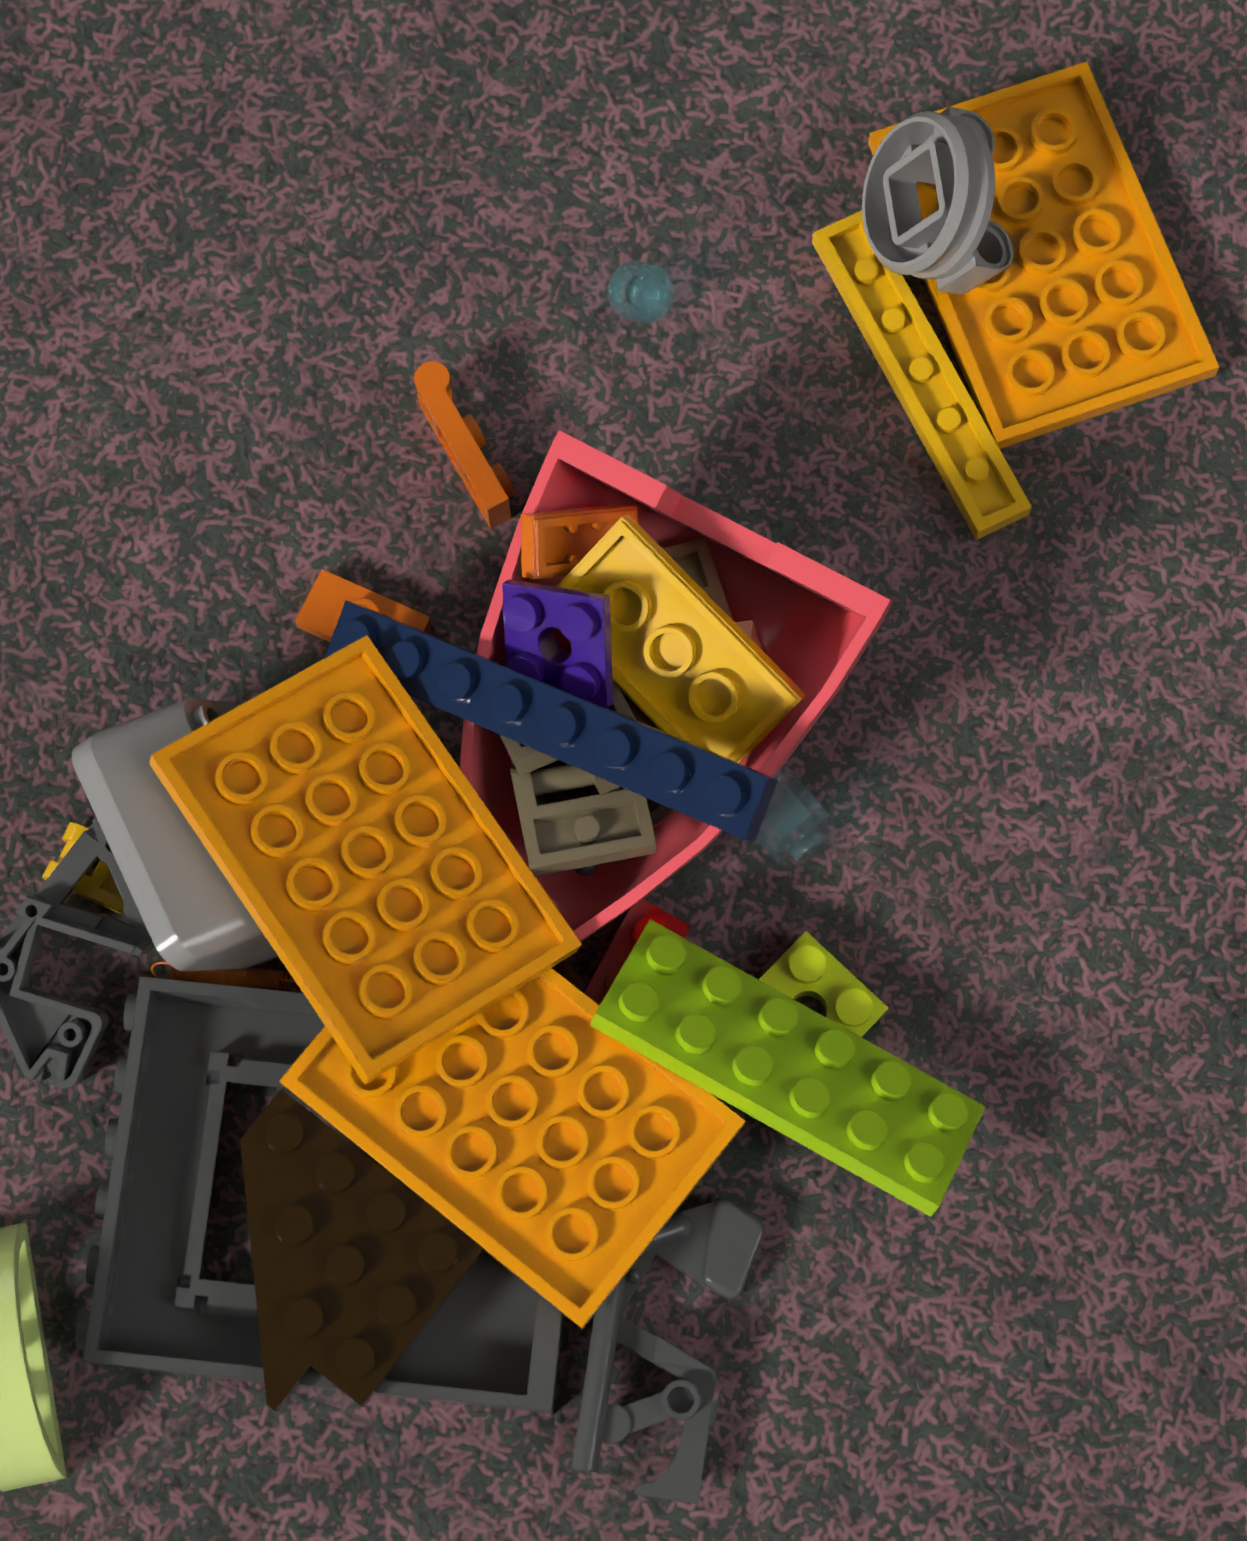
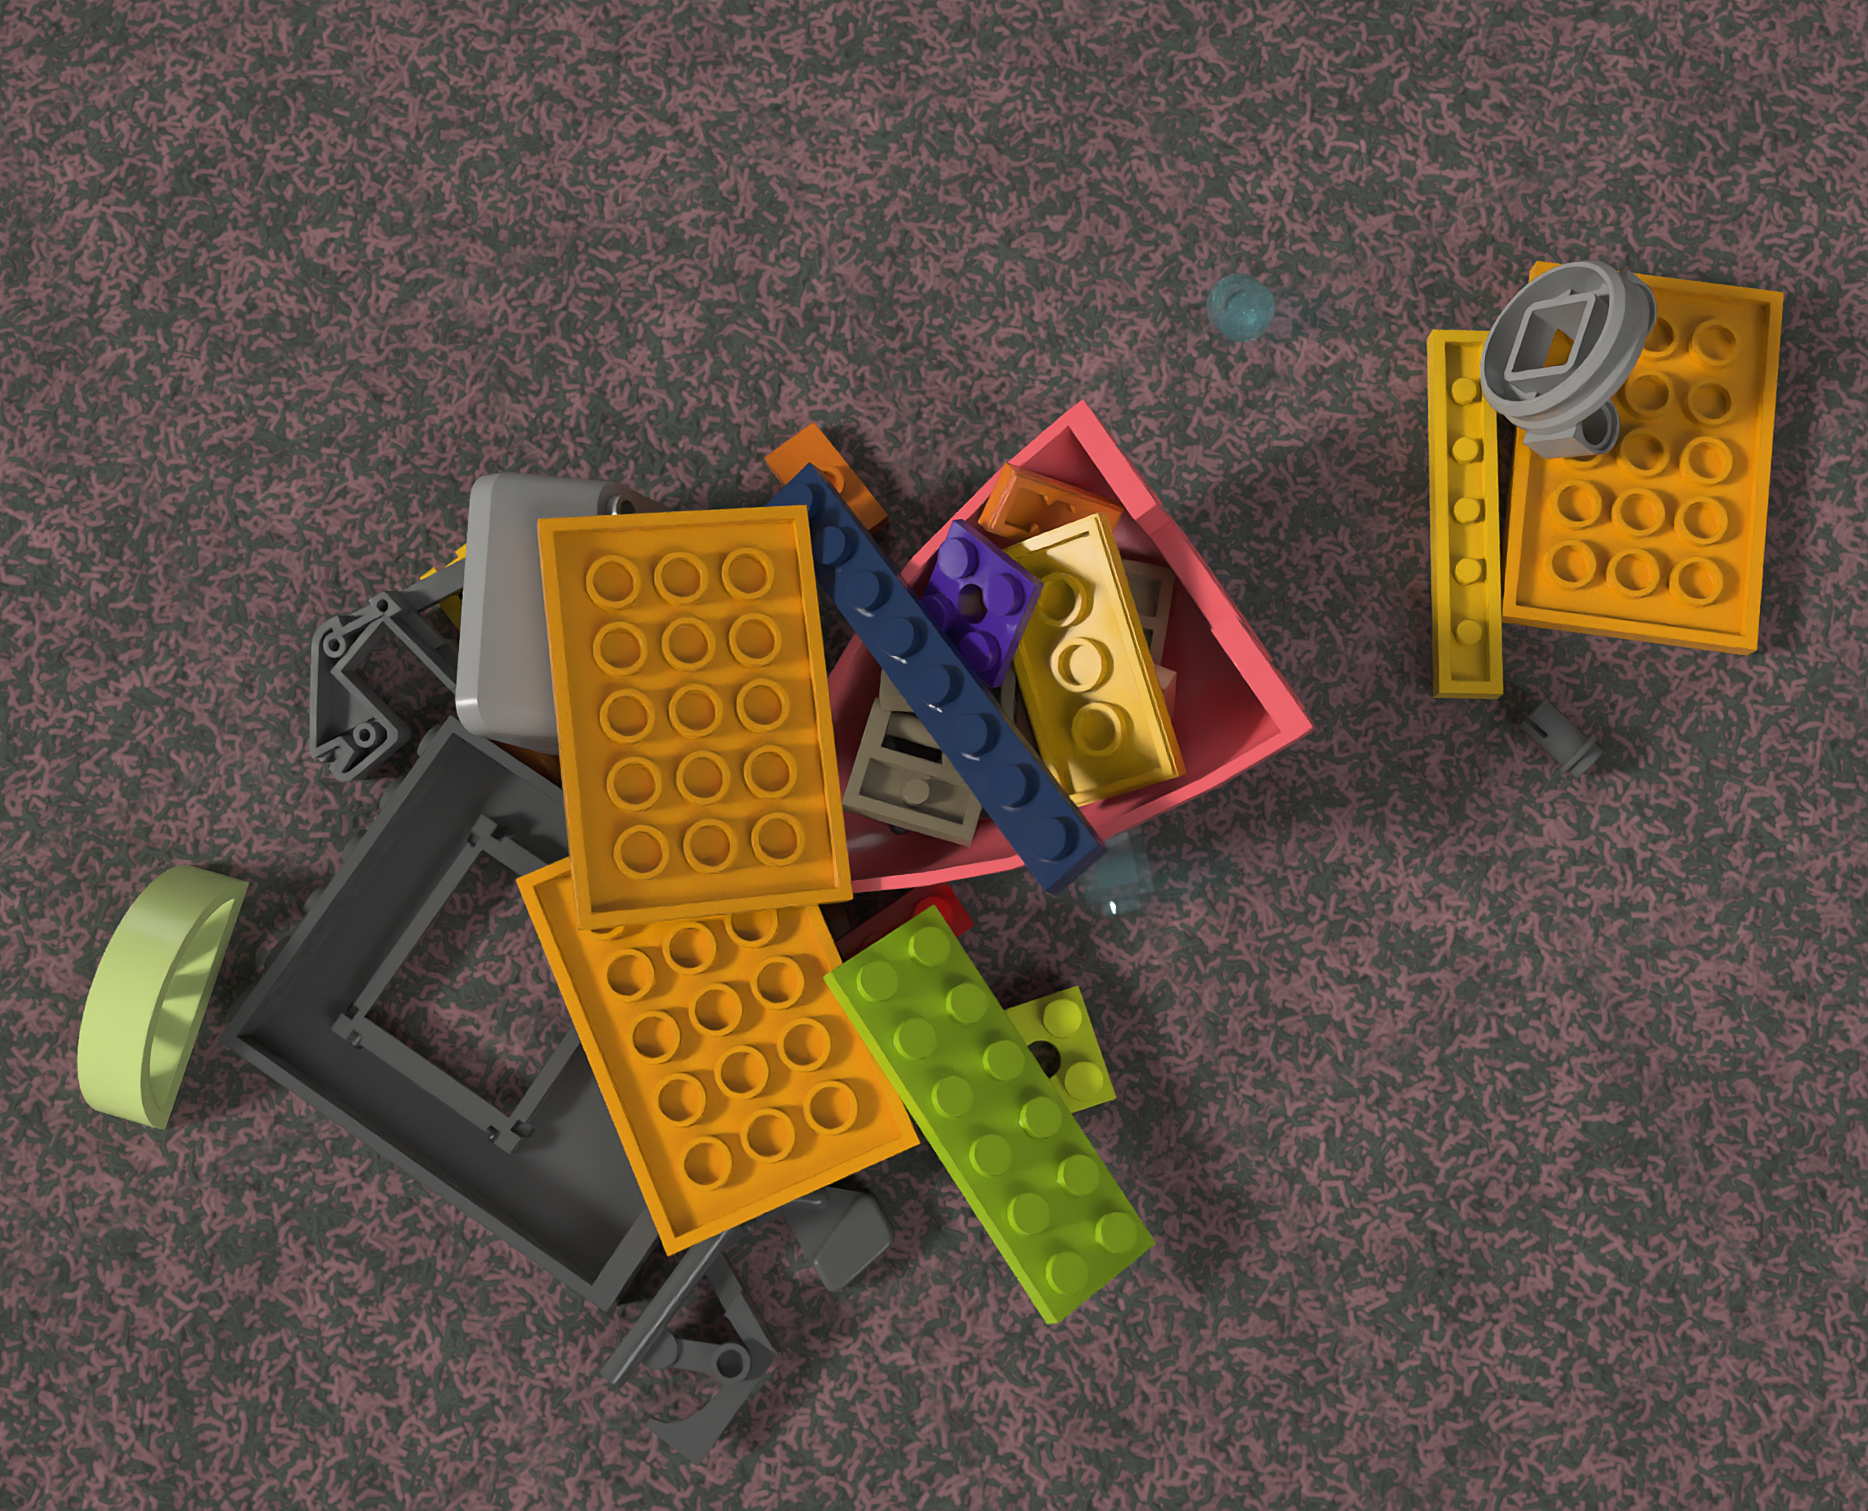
camera: 30 degrees right, 5 degrees up
(339, 1256) = (487, 1068): dark brown wing -> none
(462, 442) = (1002, 367): orange plate -> none
(1099, 520) = (1561, 739): none -> dark grey pin

